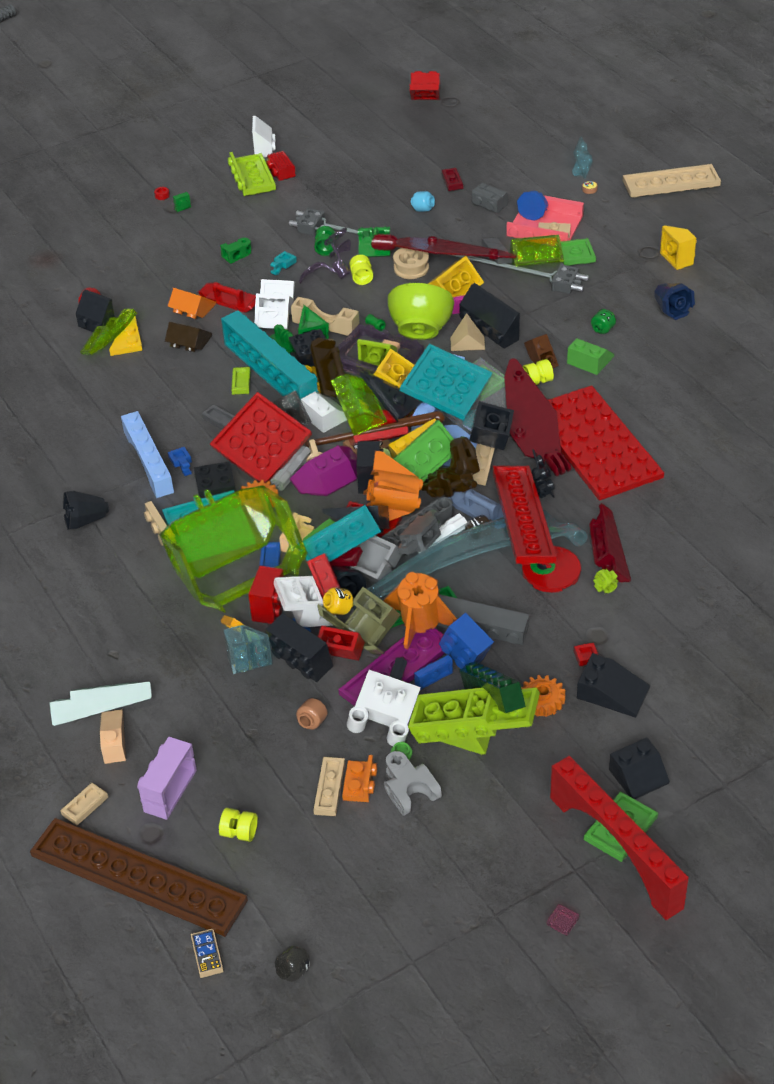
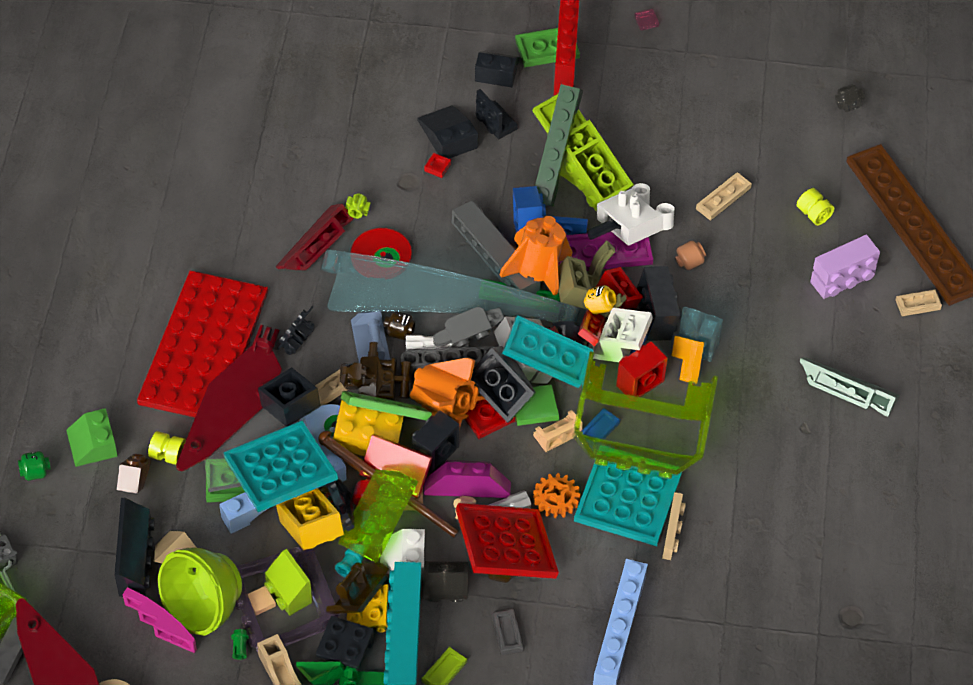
camera: 145 degrees left, 10 degrees up
(82, 509) = (733, 590): black cone -> none
(112, 736) = (859, 344): light nougat slope -> none
(181, 458) = (590, 598): blue plate -> none
(206, 953) = (900, 145): tile -> none
(215, 478) = (580, 545): black brick -> none
(359, 781) = (695, 187): orange bracket -> none
(404, 748) = (652, 184): bright green plate -> none
(406, 780) = (665, 161): light grey piece -> none
(458, 277) = (106, 637): yellow slope -> none
(524, 515) = (365, 284): red plate -> none
(550, 697) = (505, 156): orange gear -> none
(588, 717) = (493, 116): none -> black bracket

